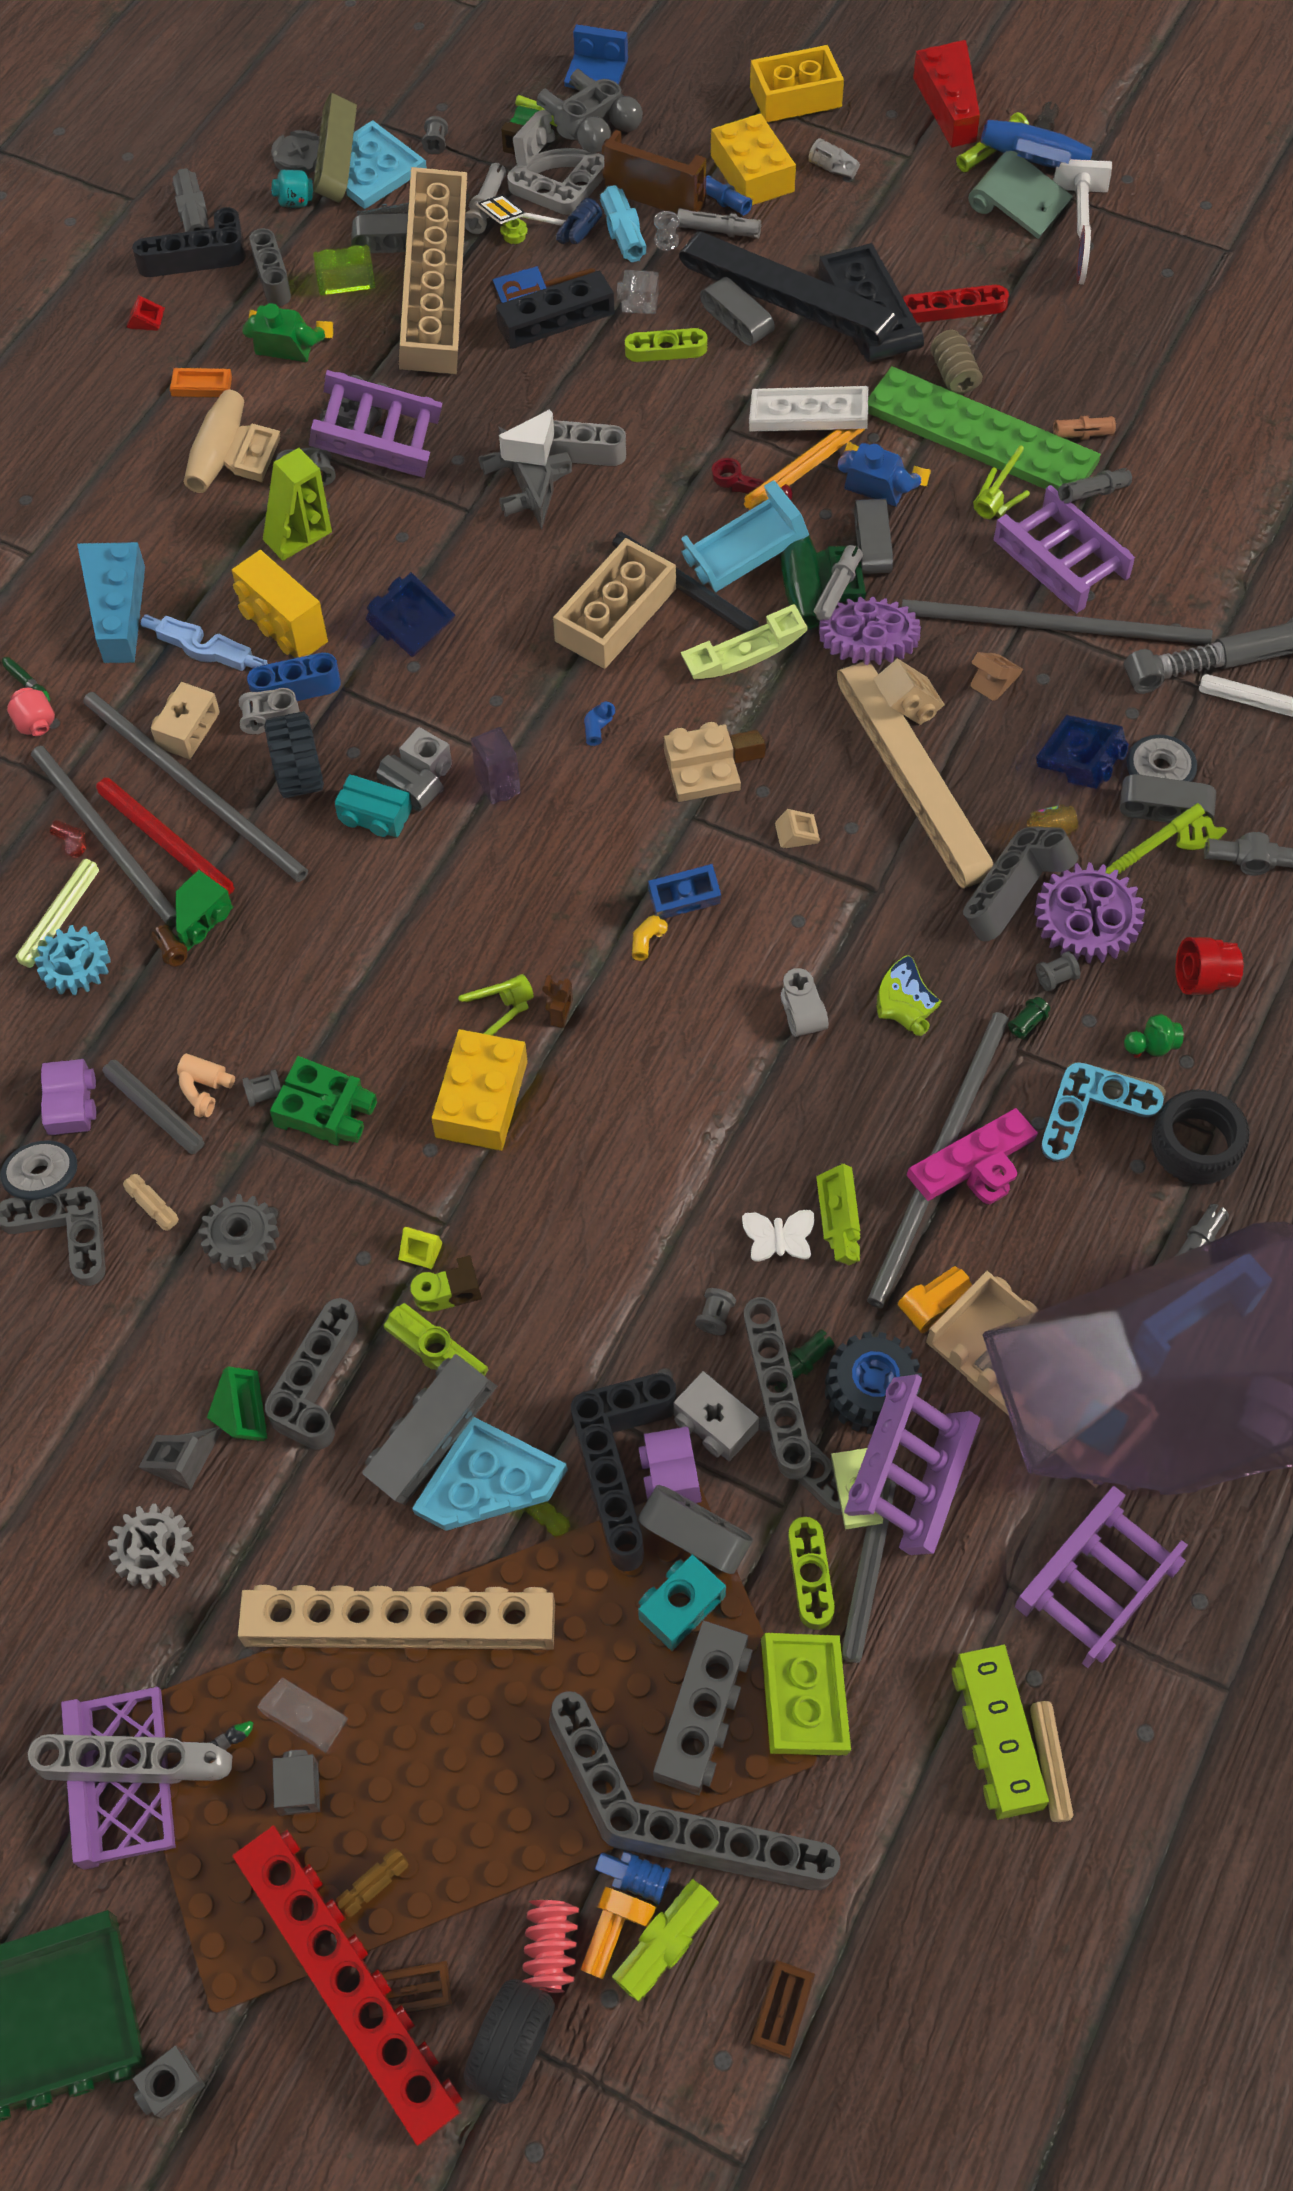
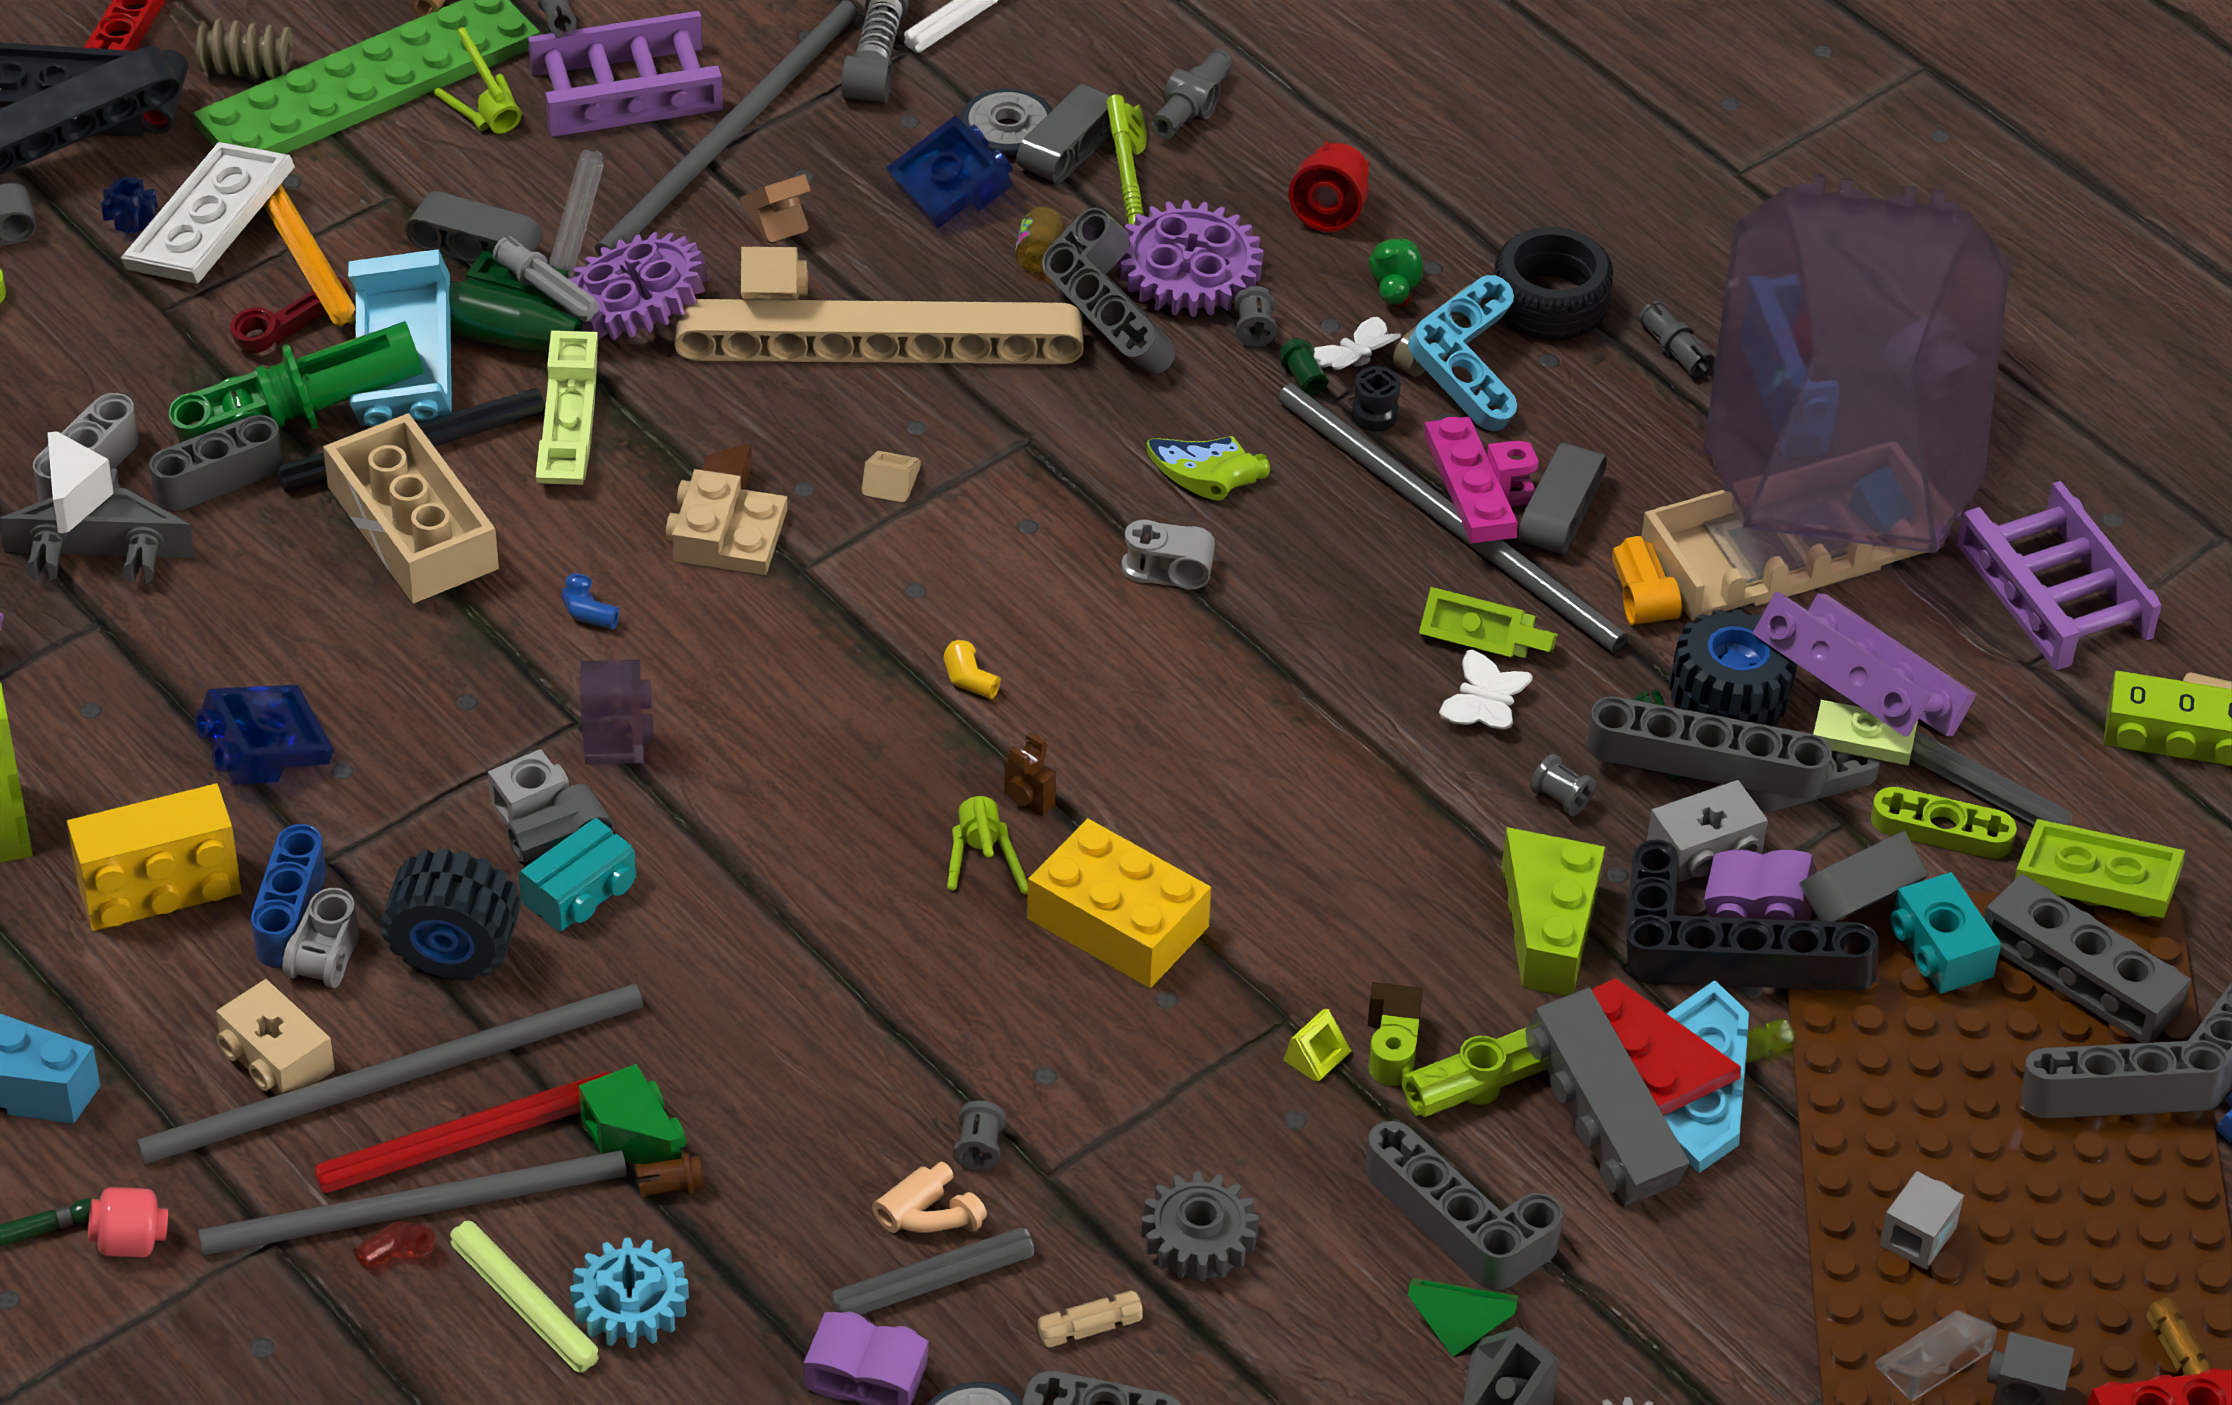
camera: 70 degrees left, 15 degrees down
(190, 636) = (153, 971): light blue piece -> none
(322, 1102) = (1042, 1075): green hips -> none
(408, 1667) = (1921, 1219): none -> light grey brick
(454, 1632) = (1850, 1214): tan brick -> none
(482, 1446) = (1667, 1055): none -> red wing
(594, 1341) = (1551, 905): none -> lime wedge
(608, 502) = (216, 463): none -> dark grey beam
(680, 509) = (301, 384): none -> green piece
(684, 892) = (938, 598): blue brick -> none
(793, 371) = (129, 204): none -> clear blue gear
(879, 473) = (374, 187): blue torso -> none
(926, 579) = (577, 211): none -> clear axle
(990, 1218) = (1562, 498): none -> dark grey beam
(1014, 1076) = (1377, 391): none -> black wheel
(1055, 1034) = (1367, 337): none -> white piece

